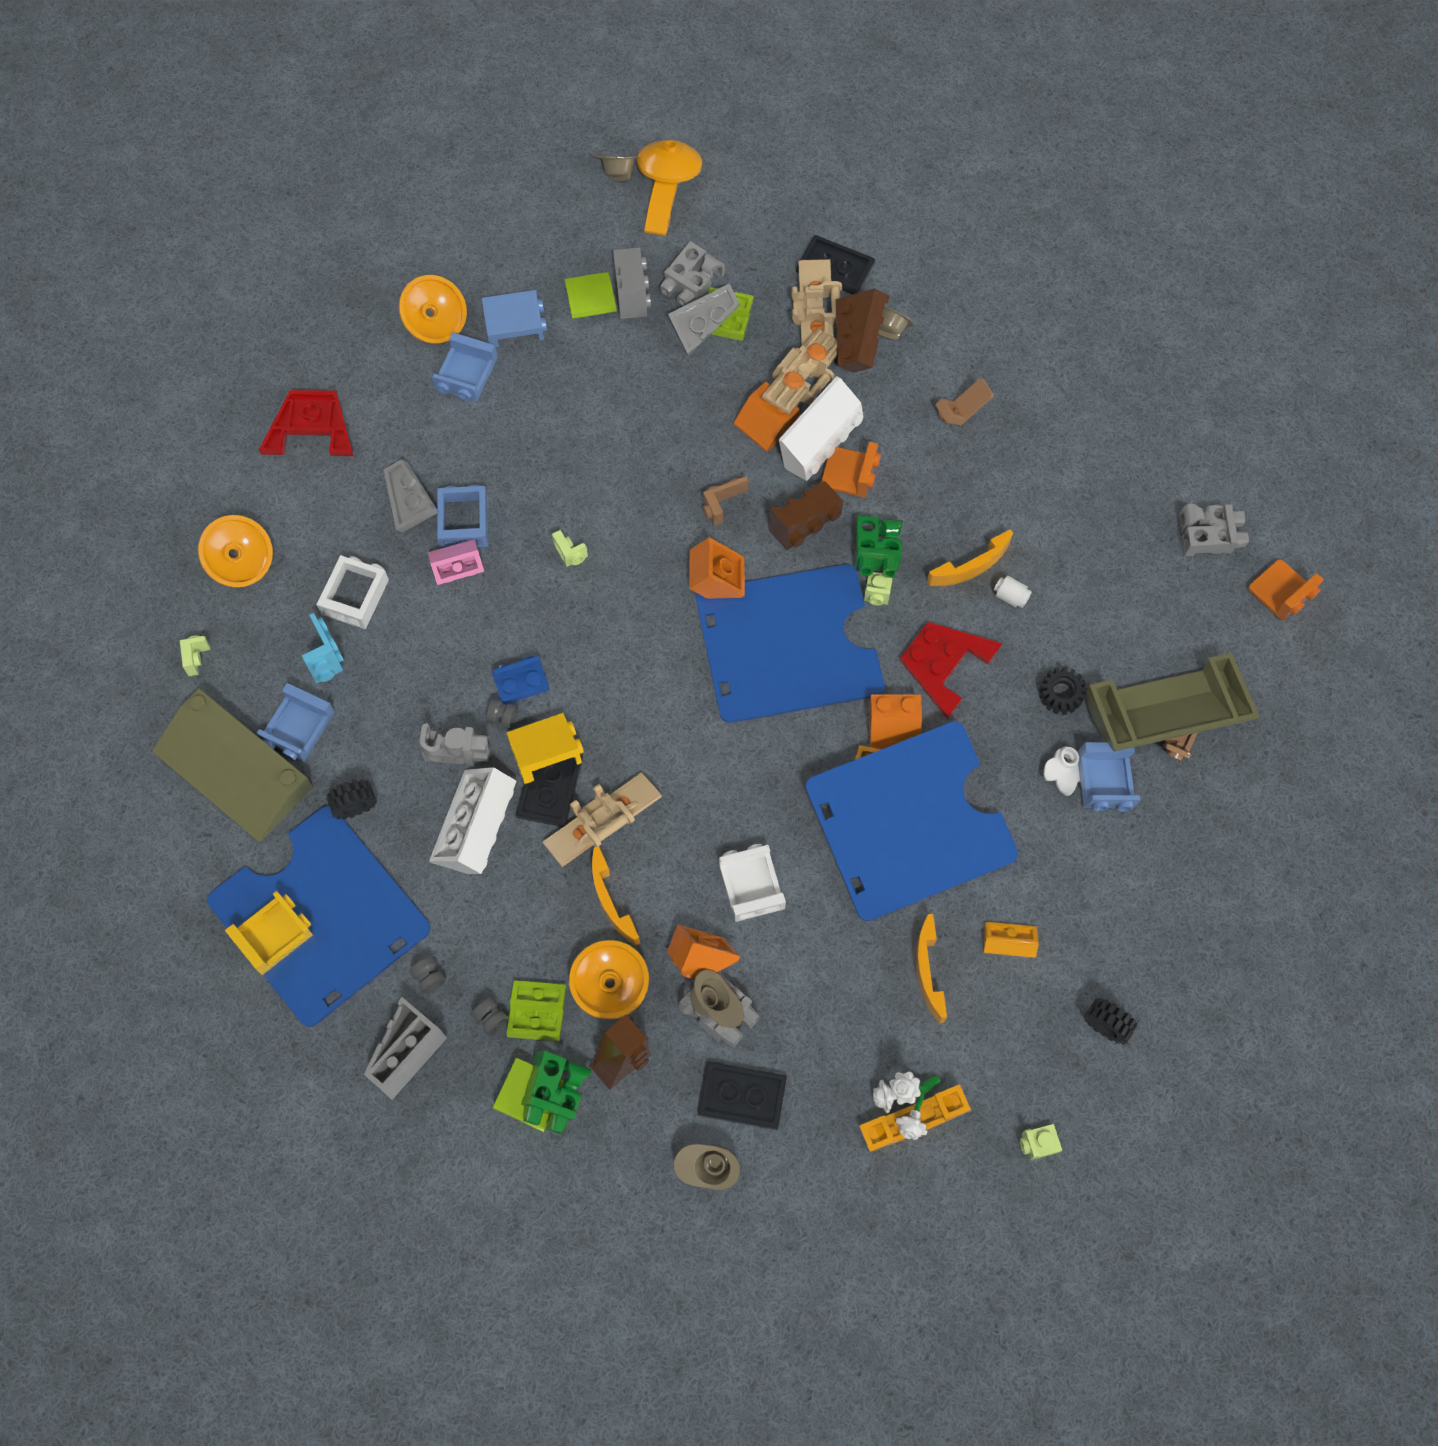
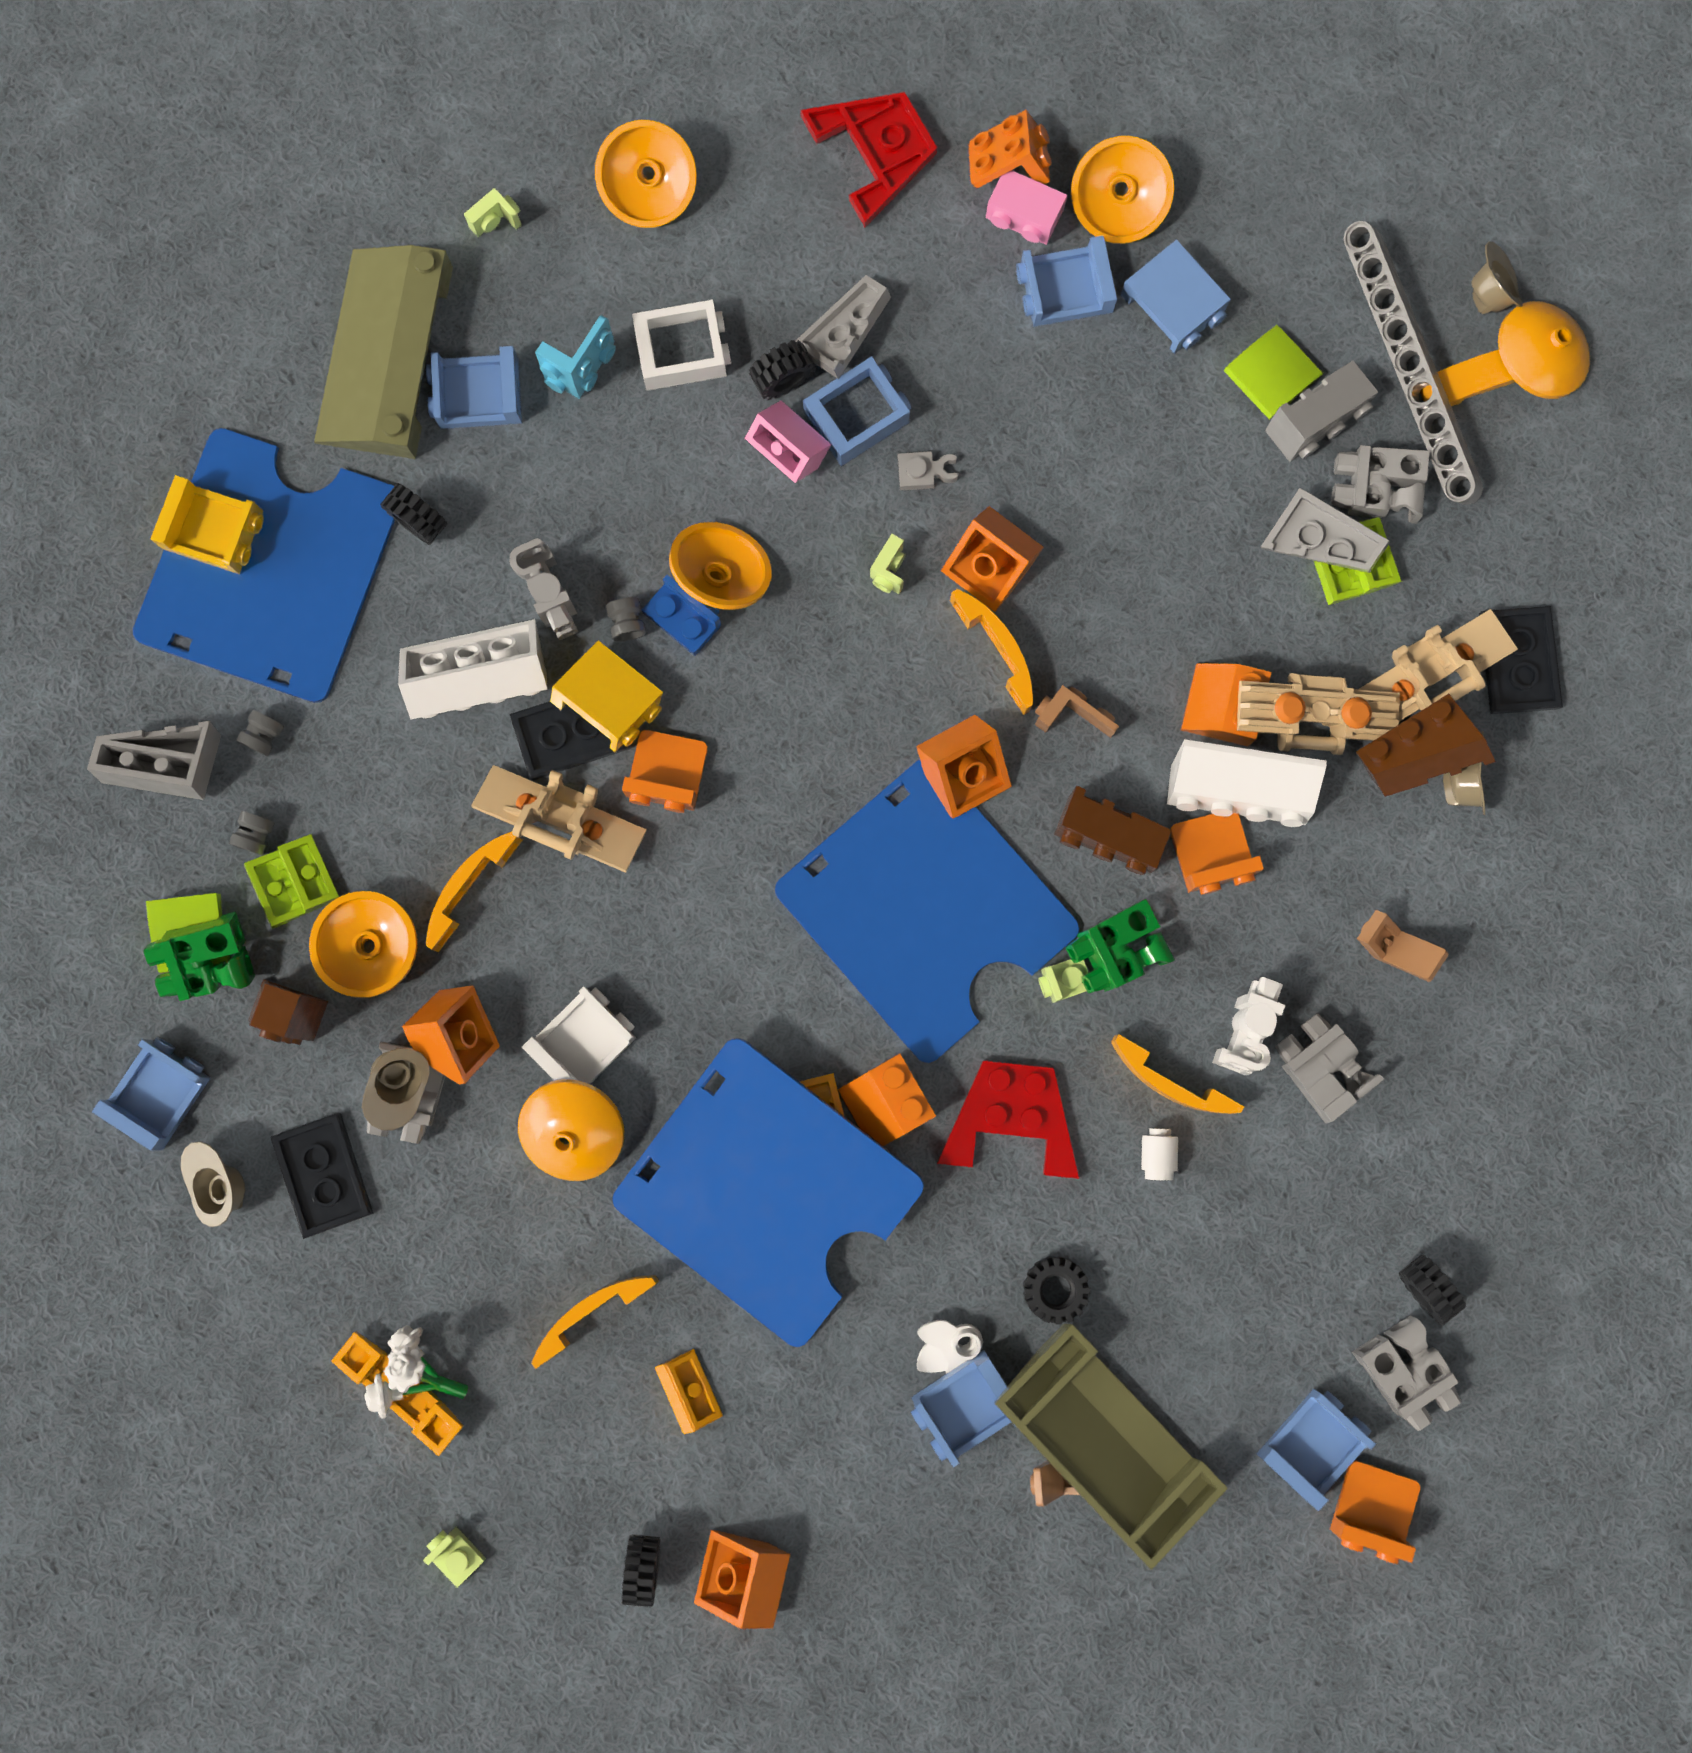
camera: 60 degrees right, 15 degrees up
(365, 354) = (1007, 146): none -> orange bracket
(405, 363) = (1025, 207): none -> bright pink brick
(410, 541) = (782, 369): none -> black tyre
(506, 638) = (720, 565): none -> light orange dish
(522, 505) = (919, 470): none -> light grey plate
(601, 493) = (991, 558): none -> orange slope
(613, 741) = (666, 771): none -> orange bracket
(623, 1176) = (154, 1094): none -> medium blue panel
(624, 219) = (1401, 350): none -> light grey beam
(656, 512) = (973, 612): none -> light orange slope
(790, 916) = (582, 1117): none -> light orange dish
(962, 499) = (1251, 1025): none -> white hips
(1006, 485) = (1315, 1064): none -> light grey hips
(1146, 967) = (742, 1580): none -> orange slope
(1170, 490) = (1432, 1289): none -> black tyre
(1230, 601) = (1315, 1446): none -> medium blue panel

